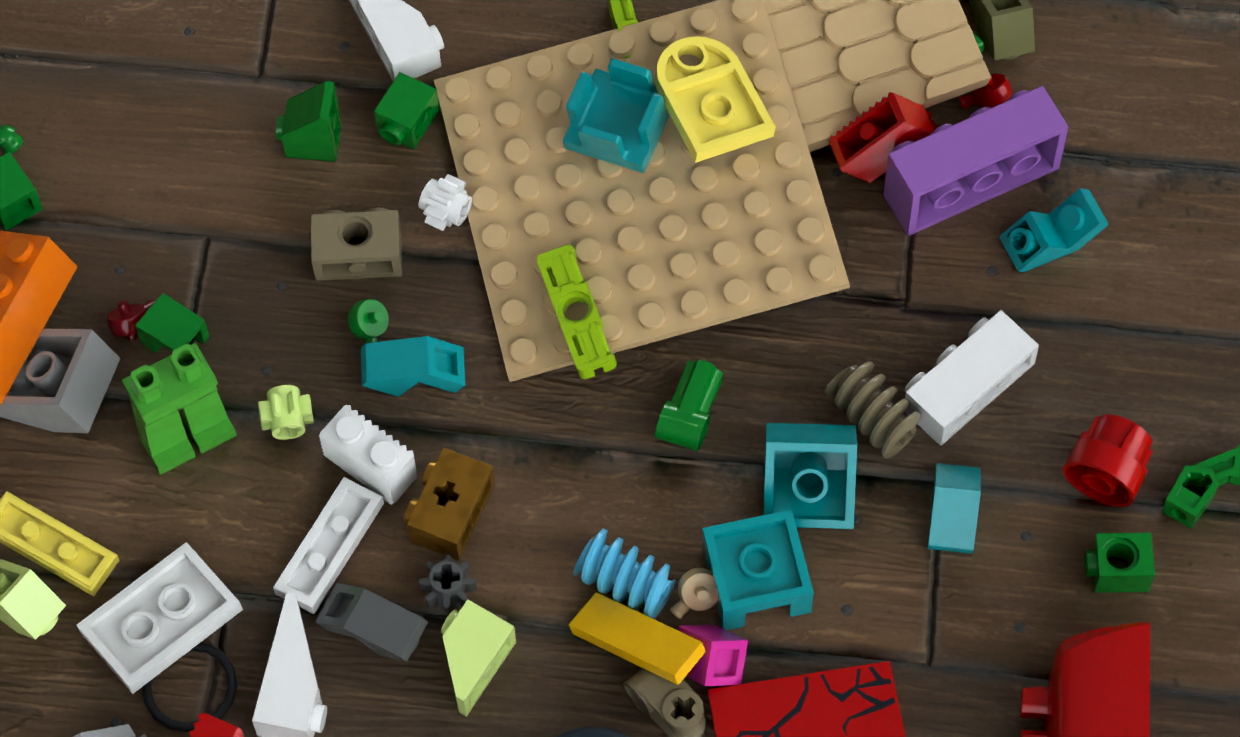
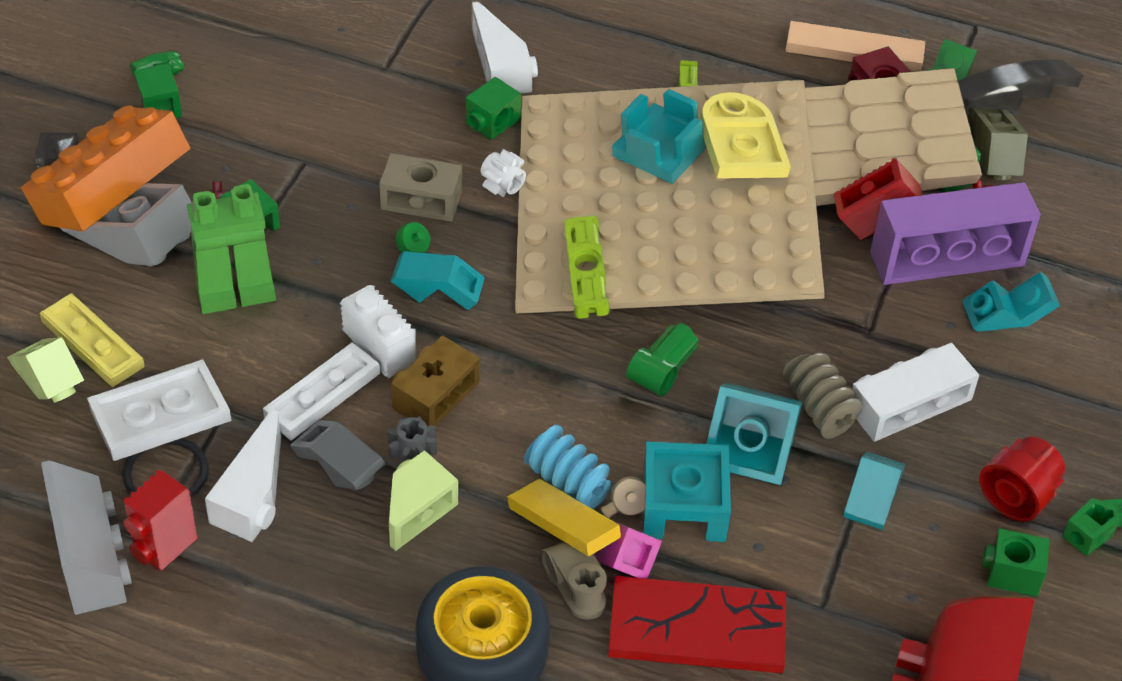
camera: 10 degrees right, 15 degrees down
(285, 412) = (320, 286): yellowish green gear -> none
(311, 124) = (414, 98): green slope -> none

